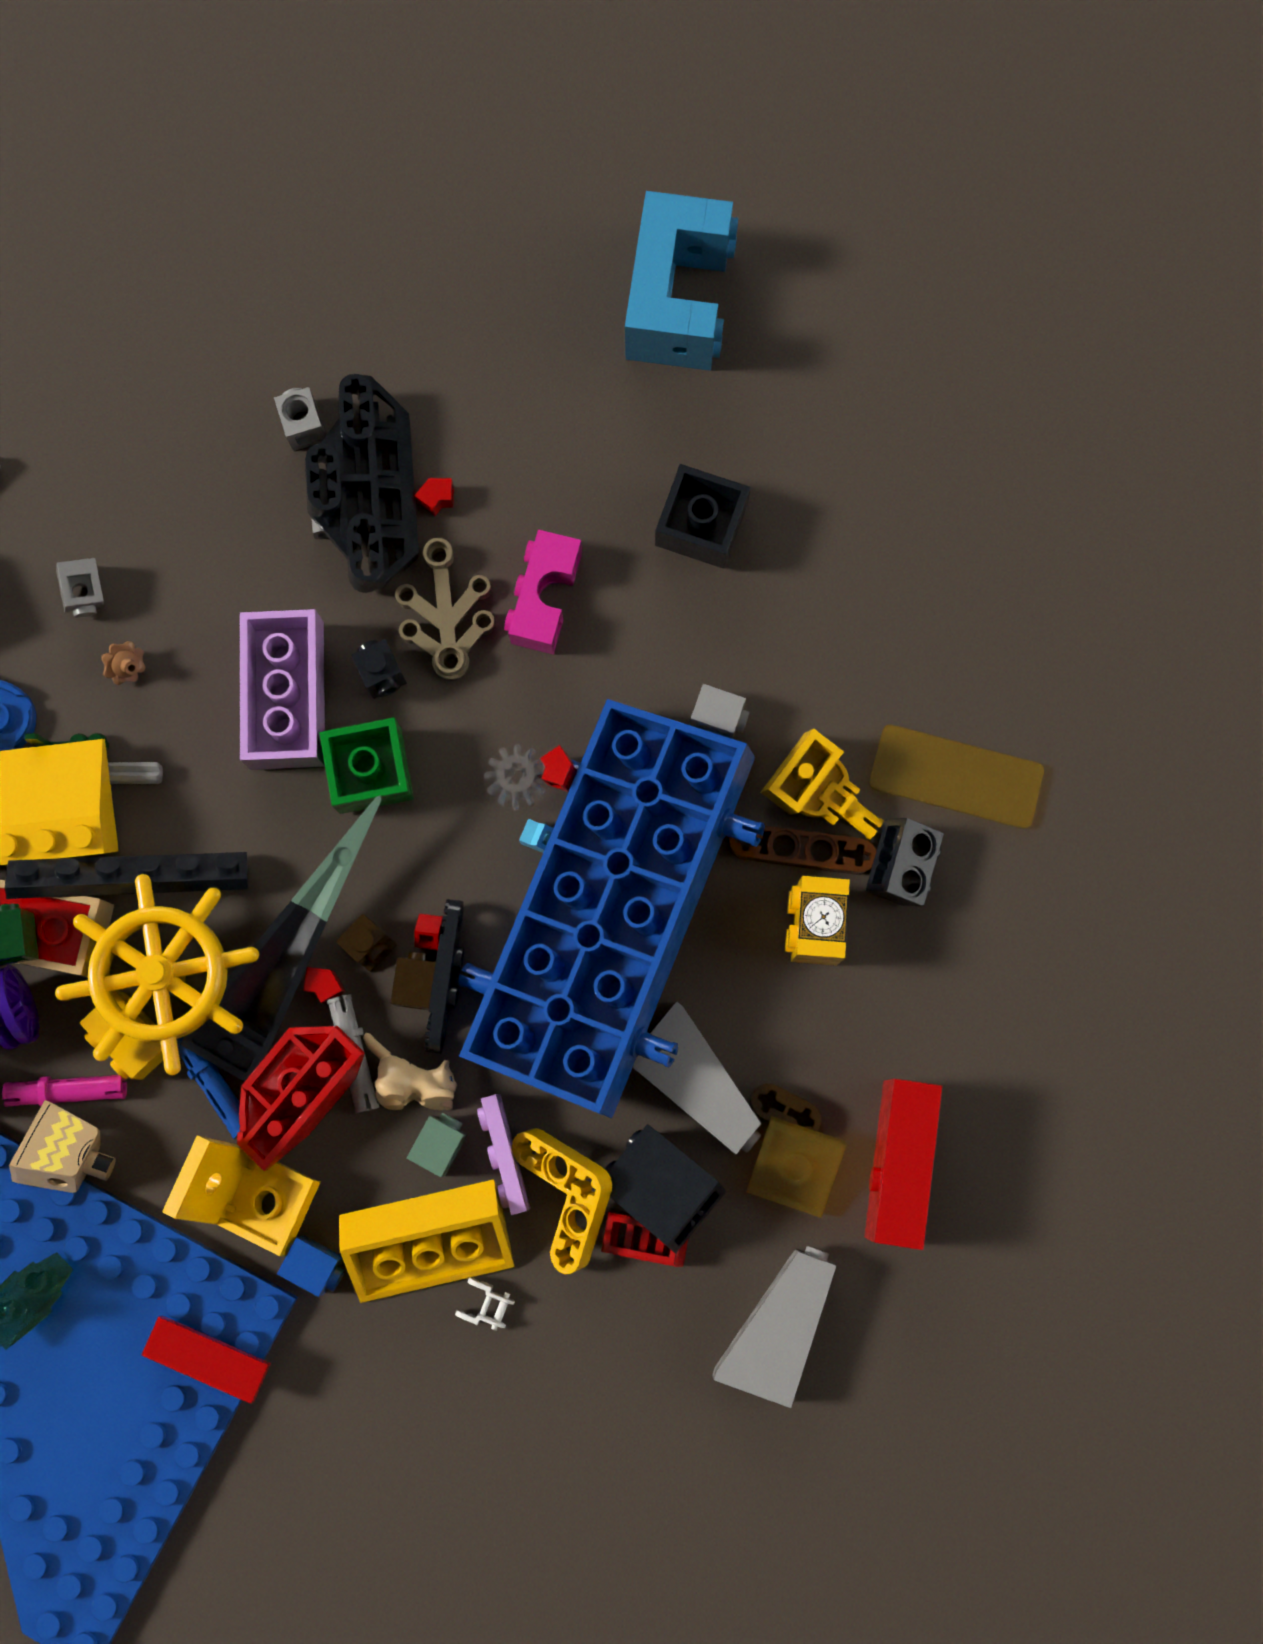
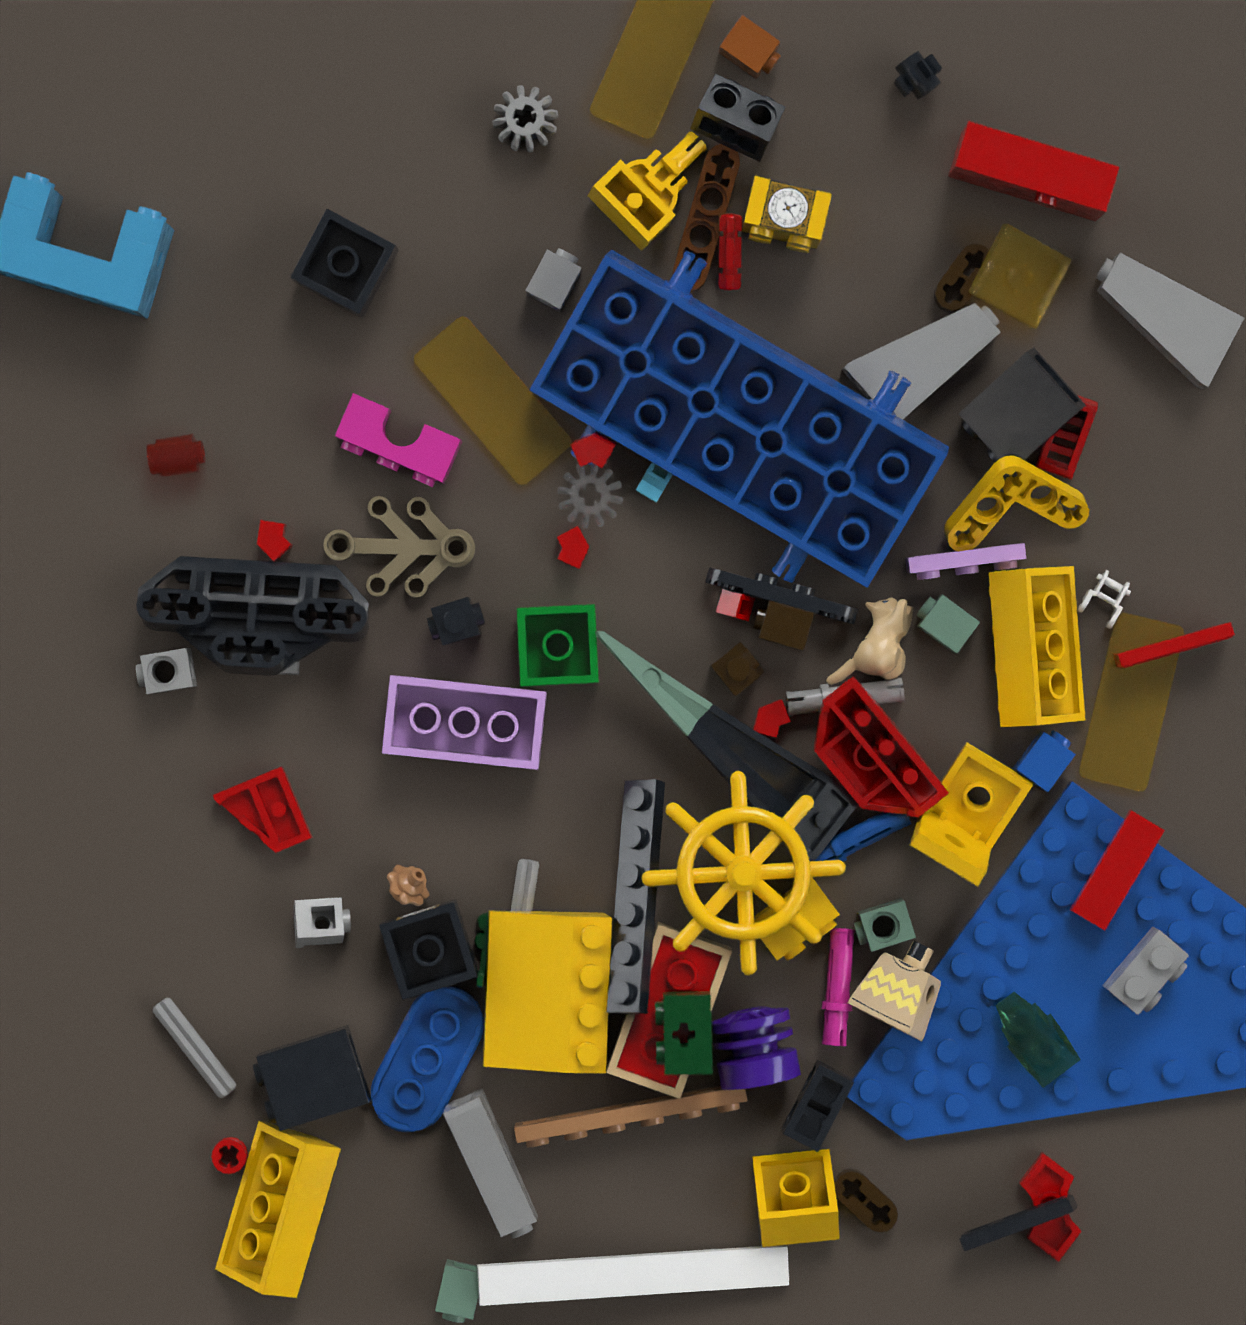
camera: 90 degrees left, 10 degrees up
(61, 688) = (429, 949): none -> black brick
(101, 1406) = (1146, 971): none -> light grey brick
(145, 1134) = (901, 930): none -> sand green brick
(182, 527) = (267, 809): none -> red wing
(384, 1348) = (1129, 707): none -> clear yellow piece
(444, 1385) = (1174, 645): none -> red tile
(465, 770) = (573, 547): none -> red piece
(501, 396) = (175, 455): none -> clear red brick
(597, 670) = (492, 400): none -> clear yellow piece
(772, 875) = (730, 252): none -> red axle
(854, 666) = (518, 107): none -> light grey gear
(974, 865) = (750, 48): none -> dark orange brick
(978, 1033) = (918, 75): none -> black gear

